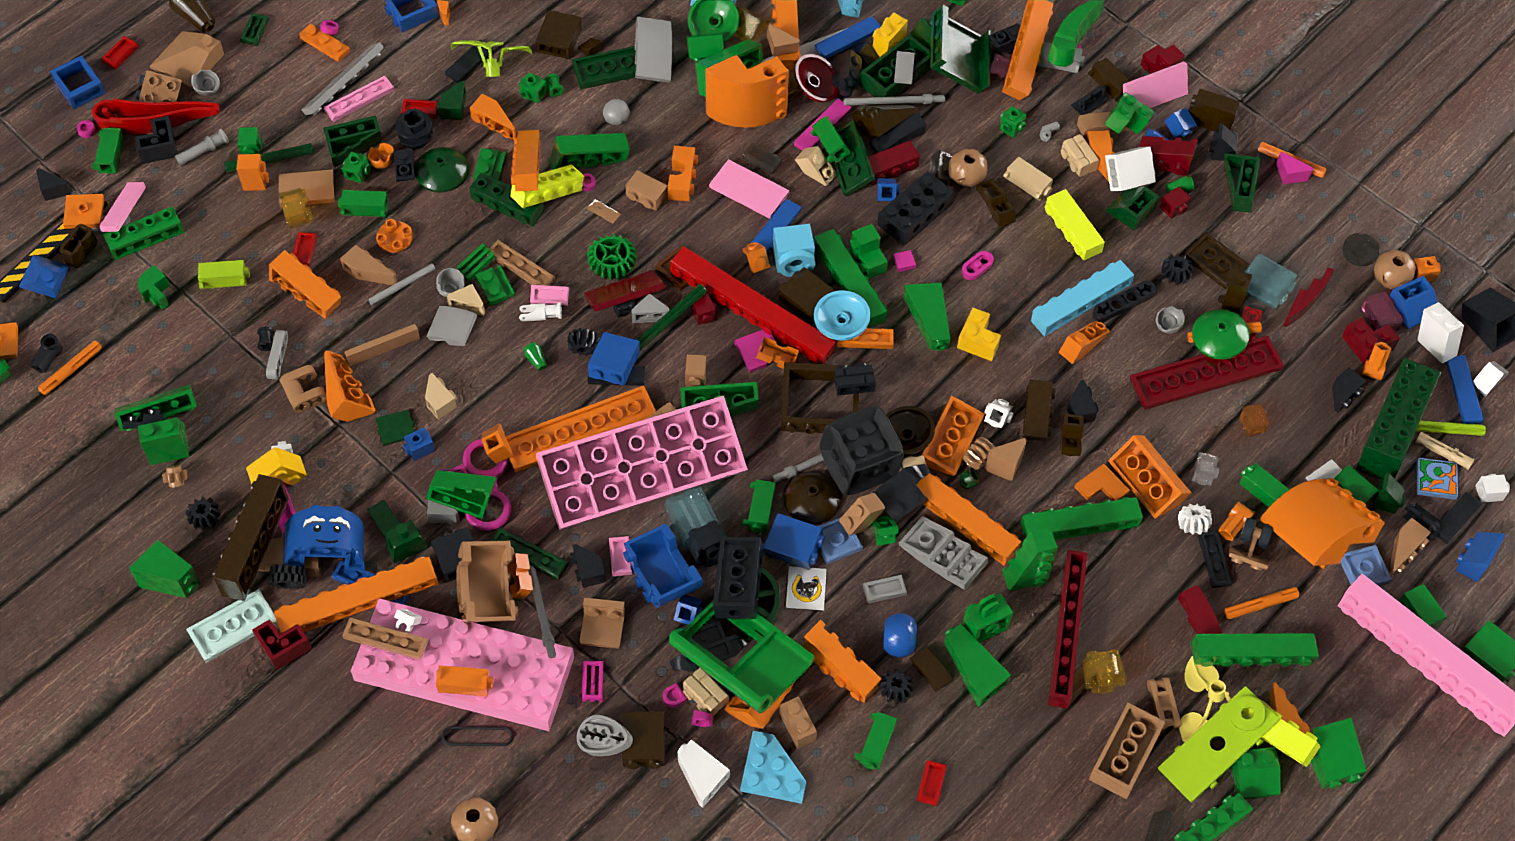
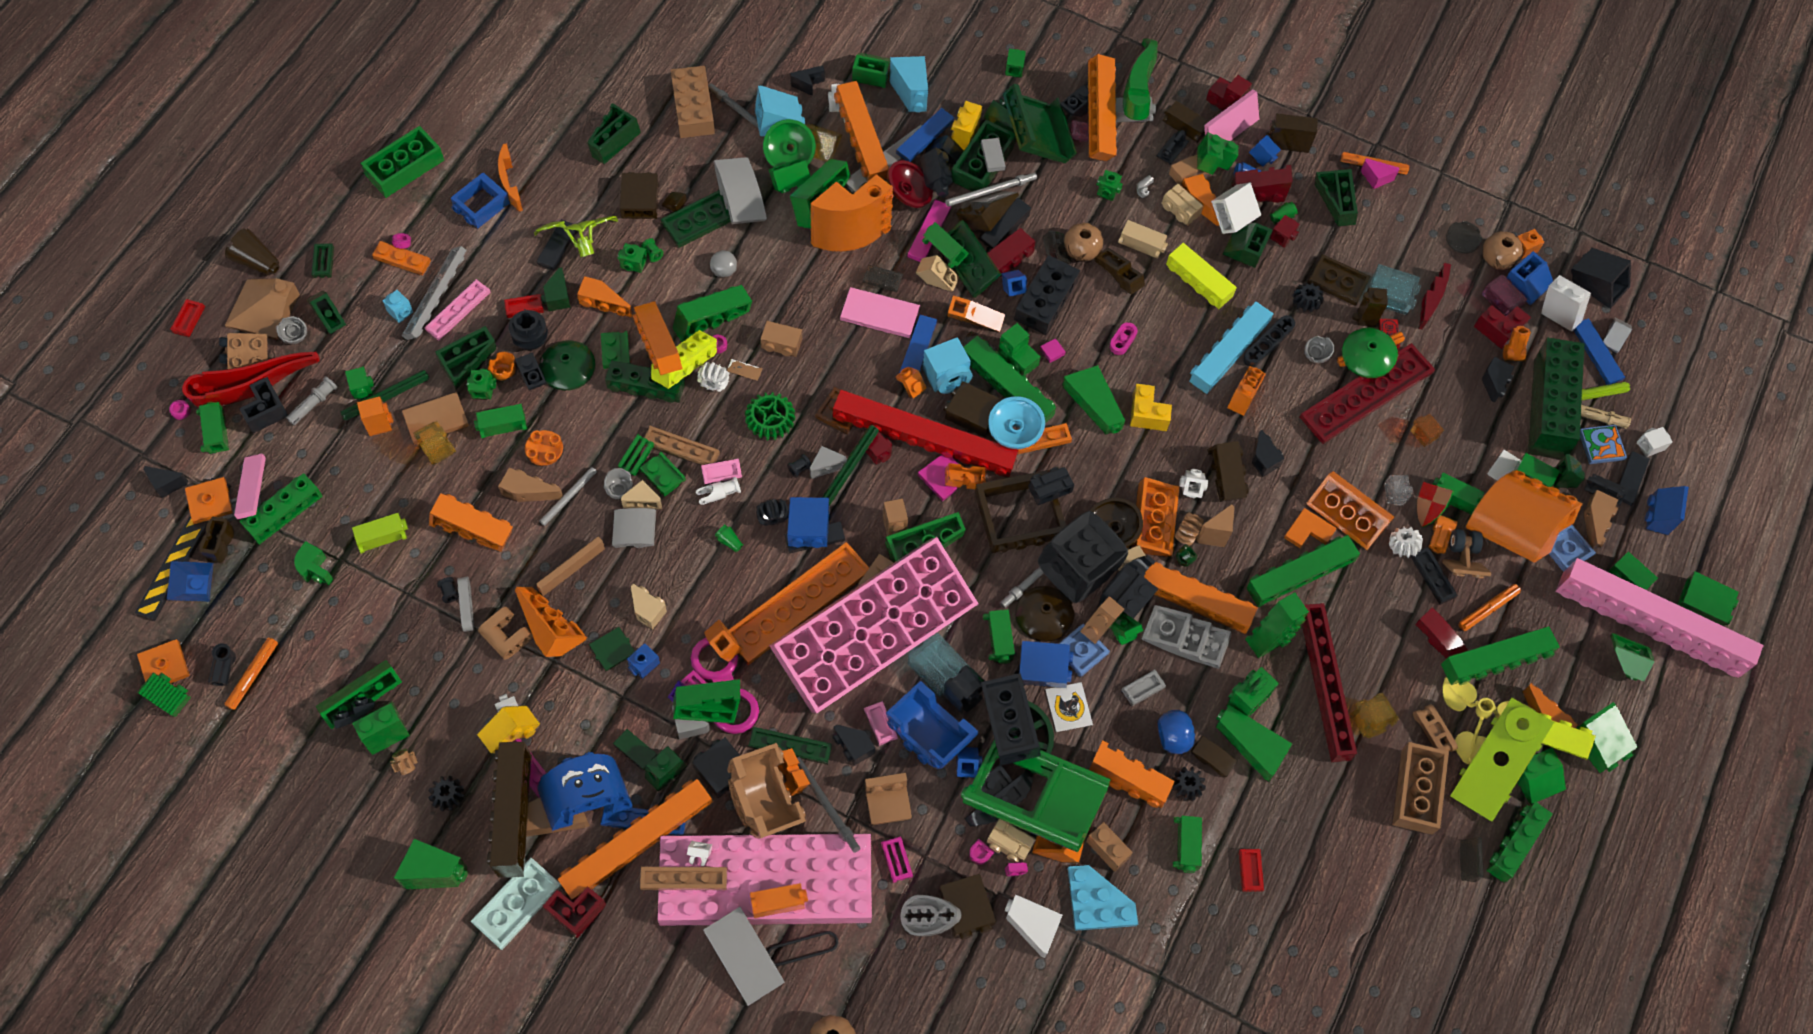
camera: 20 degrees left, 5 degrees up
(77, 97) = (160, 377): blue window -> none
(241, 74) = (326, 311): none -> dark green slope
(287, 577) = (558, 838): black tyre -> none
(305, 247) = (455, 482): red tile -> none
(306, 82) = (397, 306): none -> medium azure brick
(418, 724) = (744, 956): none -> light grey slope
(570, 209) = (713, 376): none -> white gear
(624, 290) = (794, 448): dark red tile -> none
(681, 185) = (809, 299): orange arch -> none
(781, 42) = (867, 155): medium nougat slope -> none
(838, 209) = (975, 314): none -> slope
(1071, 435) = (1266, 488): dark brown brick -> none
(1223, 143) = (1310, 163): black slope -> none
(1235, 488) = (1432, 503): none -> shield
(1392, 685) = (1633, 657): none -> green slope

